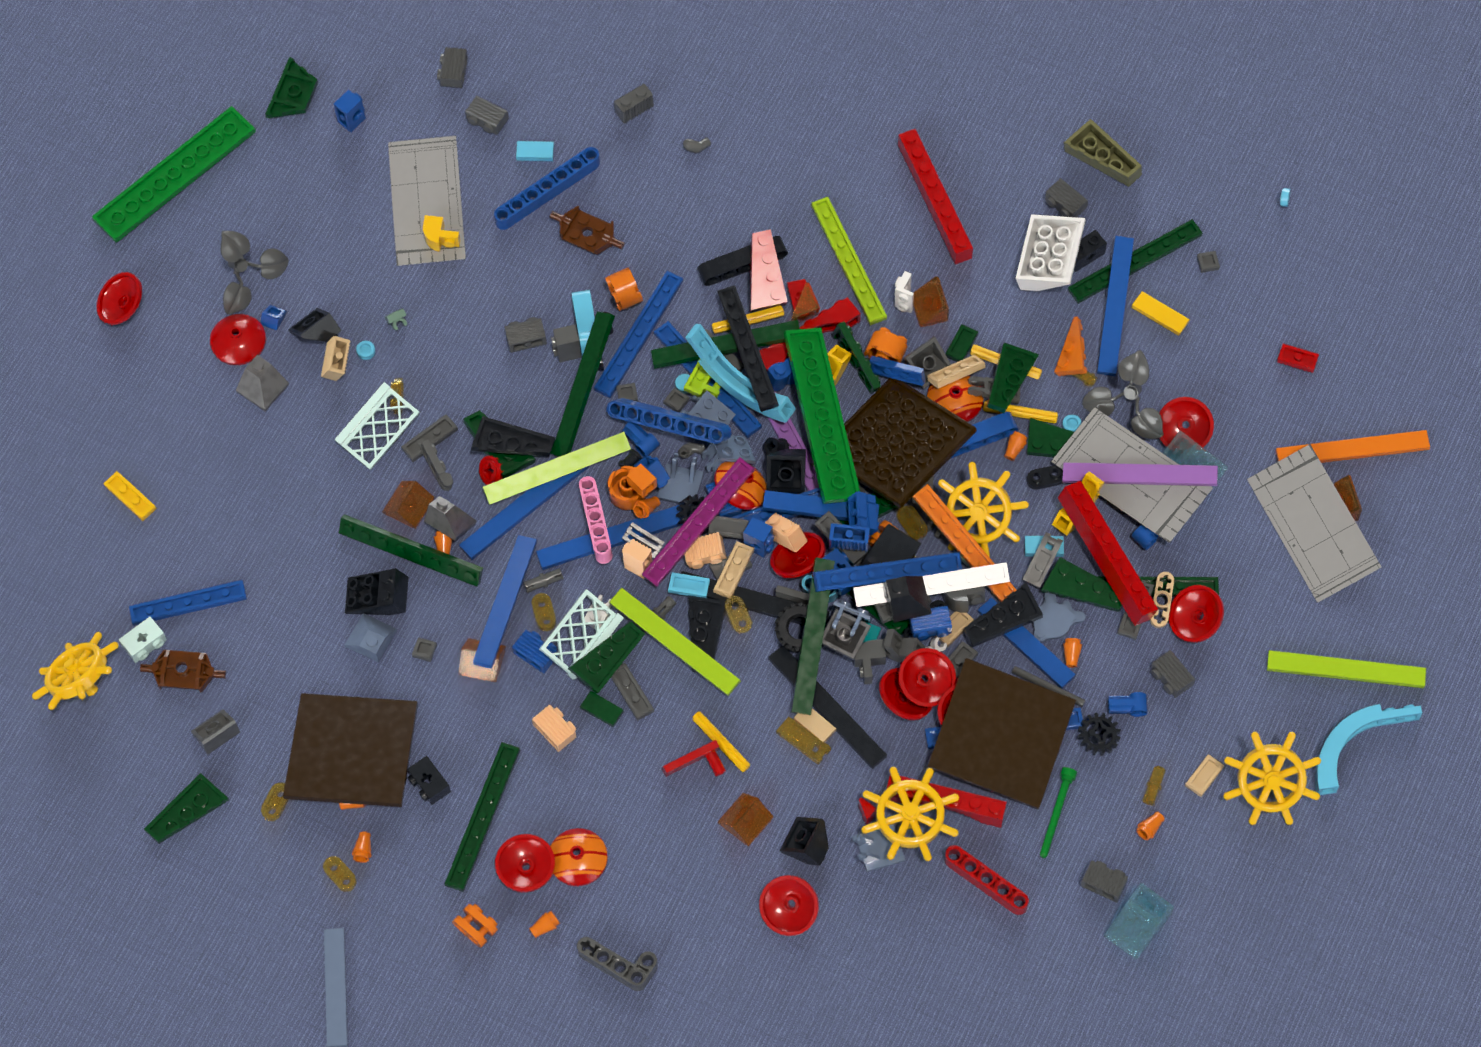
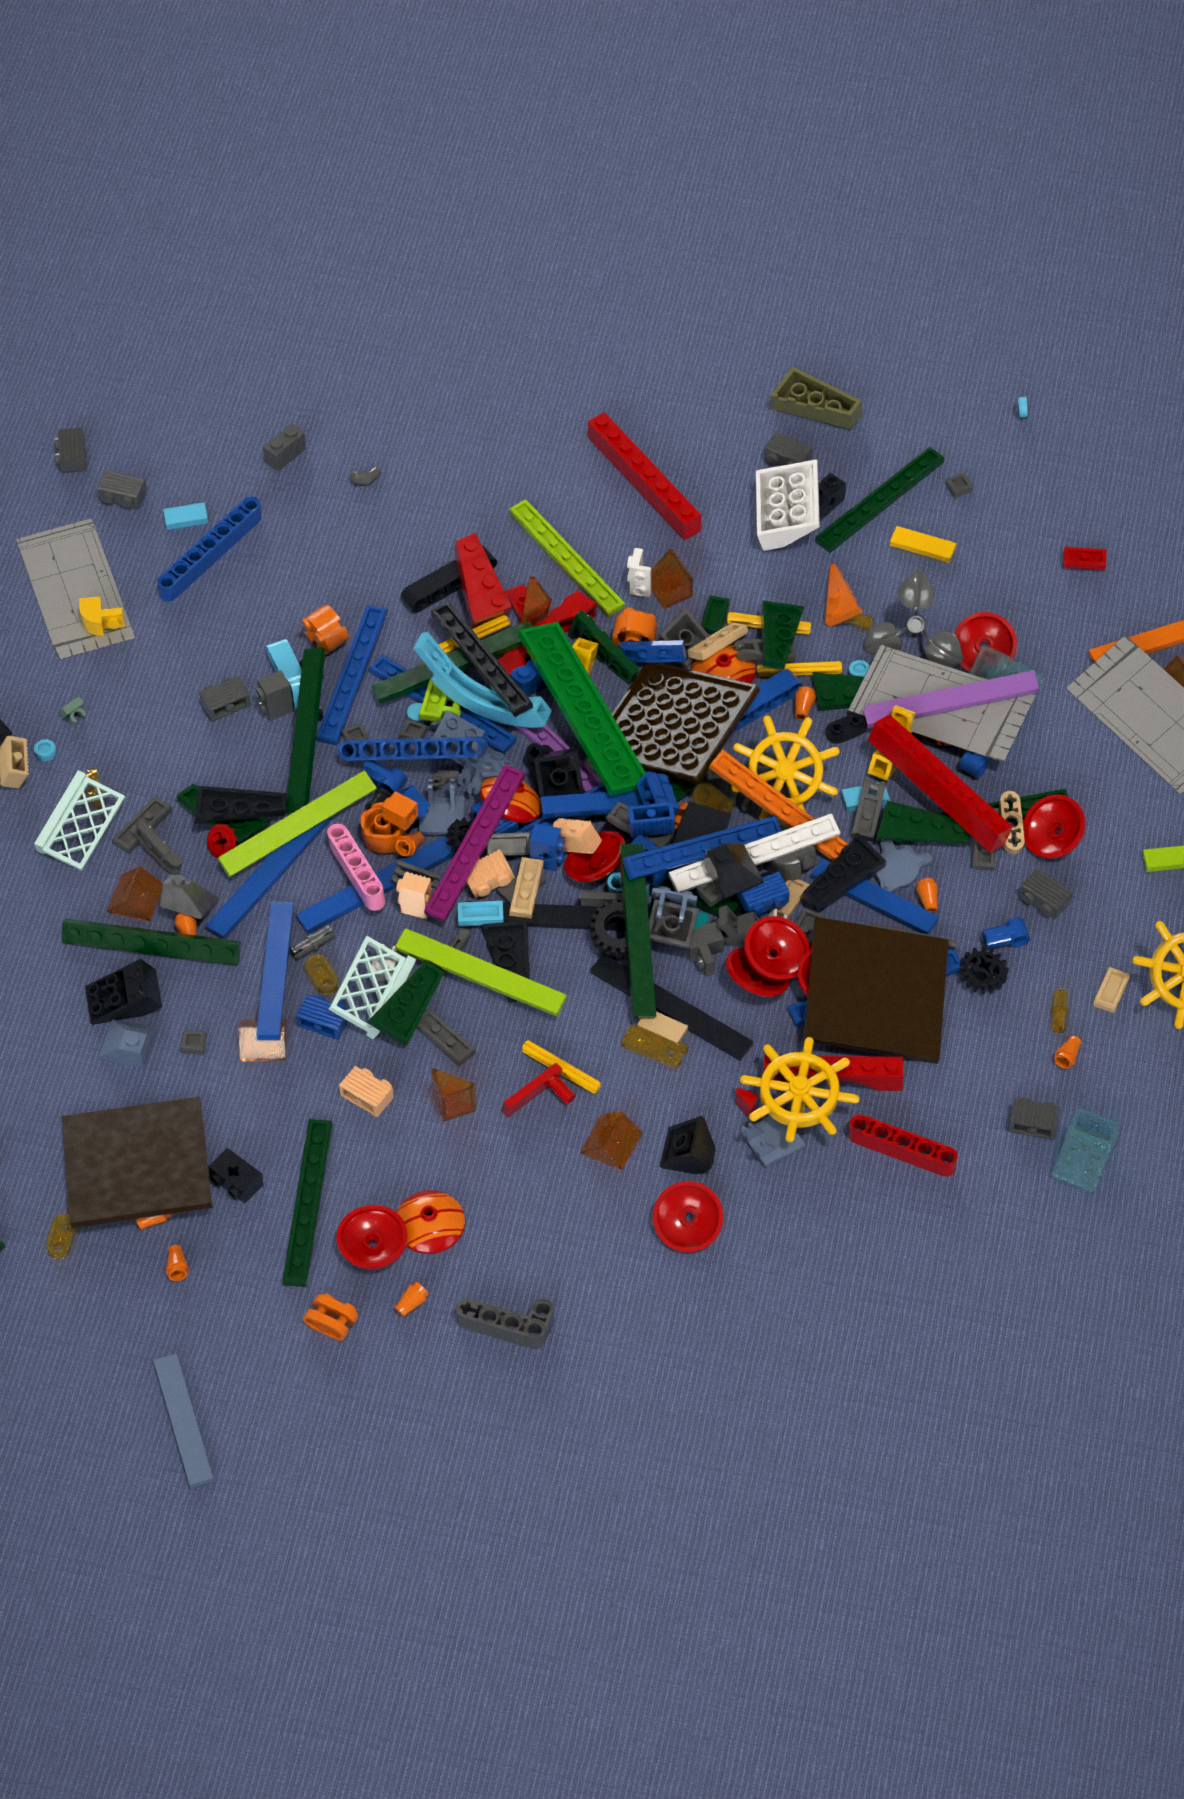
camera: 15 degrees left, 10 degrees down
(340, 874) = (159, 1296): clear yellow plate -> none
(576, 222) = (251, 577): reddish brown plate -> none
(602, 709) = (414, 1061): dark green tile -> none
(622, 750) = (453, 1095): none -> clear orange slope
(738, 614) = (545, 932): clear yellow plate -> none
(1067, 776) = (961, 1020): green piece -> none
(1115, 306) = (872, 545): blue tile -> none

